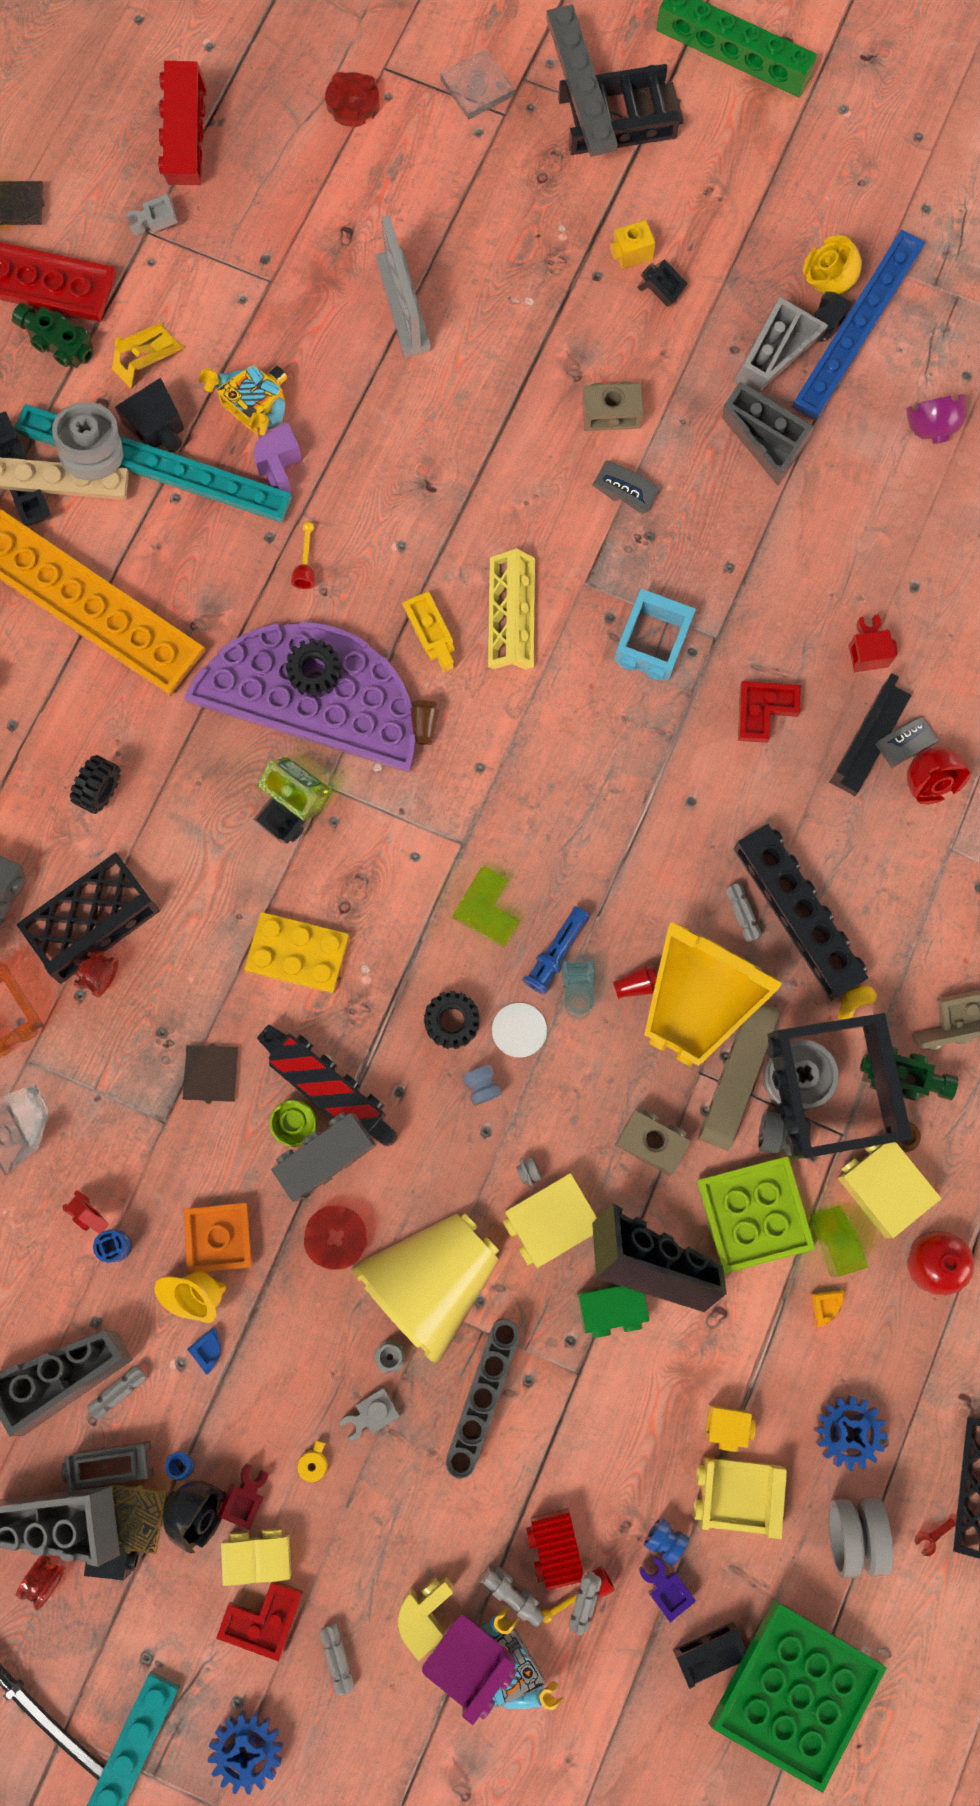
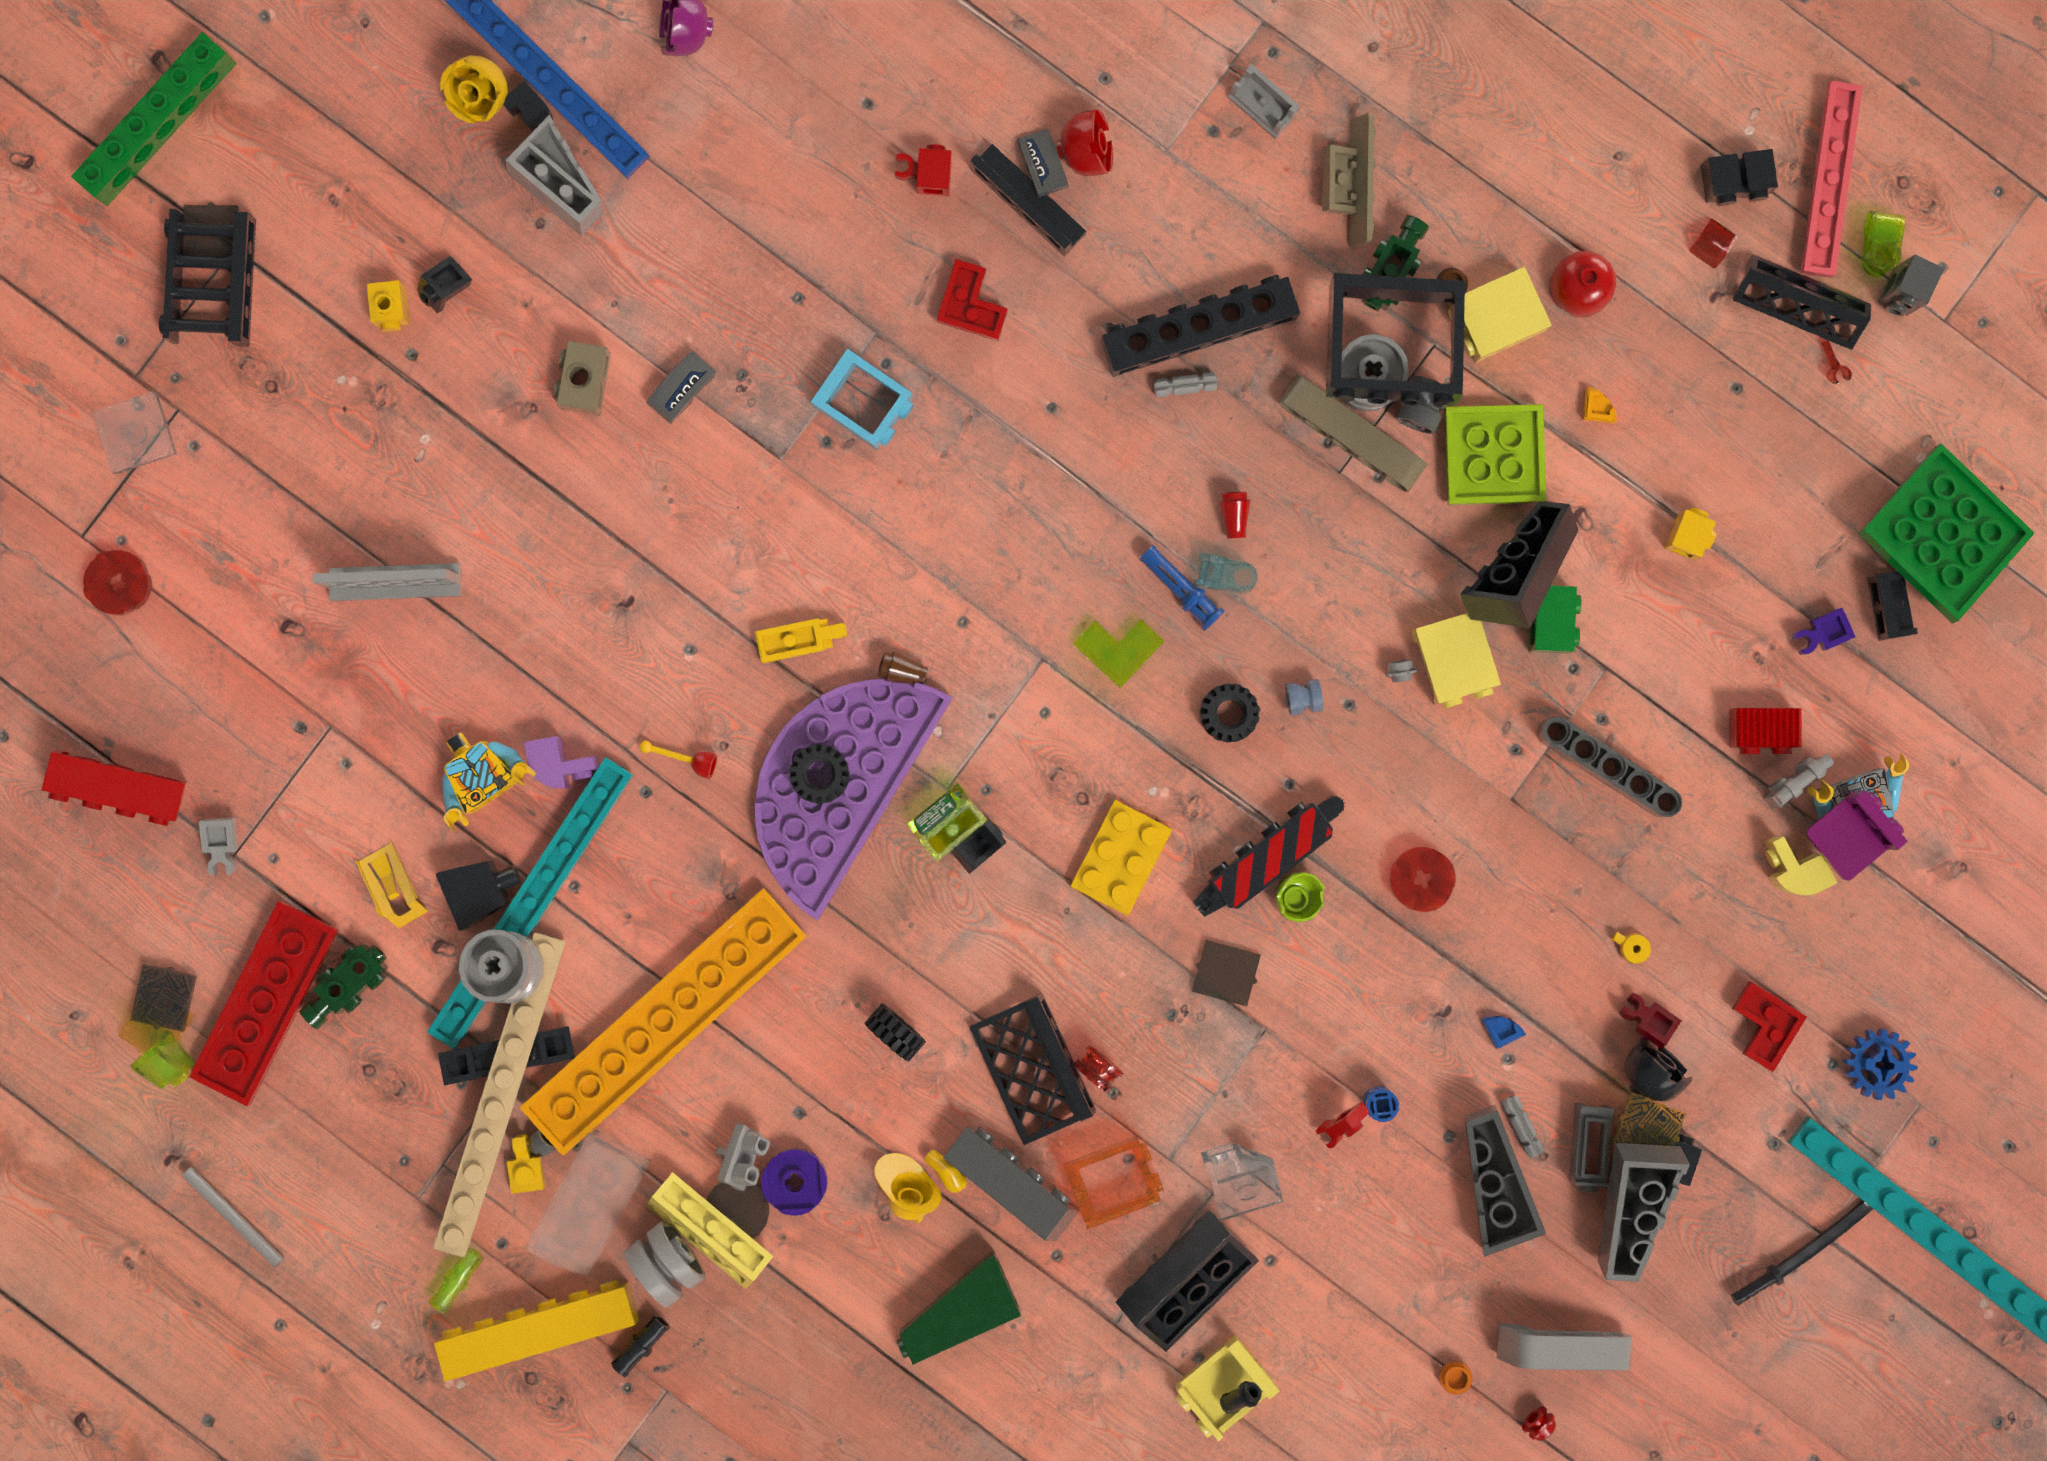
camera: 80 degrees left, 10 degrees up
(40, 1582) = (1685, 1230): clear red wheel -> none
(174, 1470) = (1609, 1083): blue hinge -> none
(191, 1296) = (1449, 1033): yellow piece -> none
(217, 1238) = (1396, 997): orange plate -> none
(256, 1558) = (1708, 1019): light yellow brick -> none
(322, 1156) = (1346, 872): dark grey wedge -> none
(337, 1659) = (1816, 961): light grey axle -> none
(374, 1412) = (1598, 877): light grey plate -> none
(386, 1348) = (1557, 846): light grey plate -> none
(430, 1281) = (1484, 794): light yellow cone -> none
(517, 606) = (796, 540): light yellow fence -> none
(519, 1030) = (1253, 646): white sticker -> none
(581, 80) = (170, 312): dark grey plate -> none
(585, 1603) = (1820, 713): light grey axle -> none
(605, 1589) = (1805, 697): hinge -> none
(634, 1141) = (1414, 523): dark tan brick -> none
(664, 1540) = (1779, 624): blue wheel -> none
(702, 995) = (1266, 447): yellow cone -> none
(741, 1496) = (1756, 539): light yellow panel -> none
(766, 430) = (656, 216): dark grey wedge -> none
(838, 1242) = (1541, 379): clear neon green slope -> none
(840, 1442) = (1729, 429): blue gear -> none
(854, 999) = (1303, 294): yellow arm -> none
(860, 1537) = (1821, 436): light grey wheel -> none

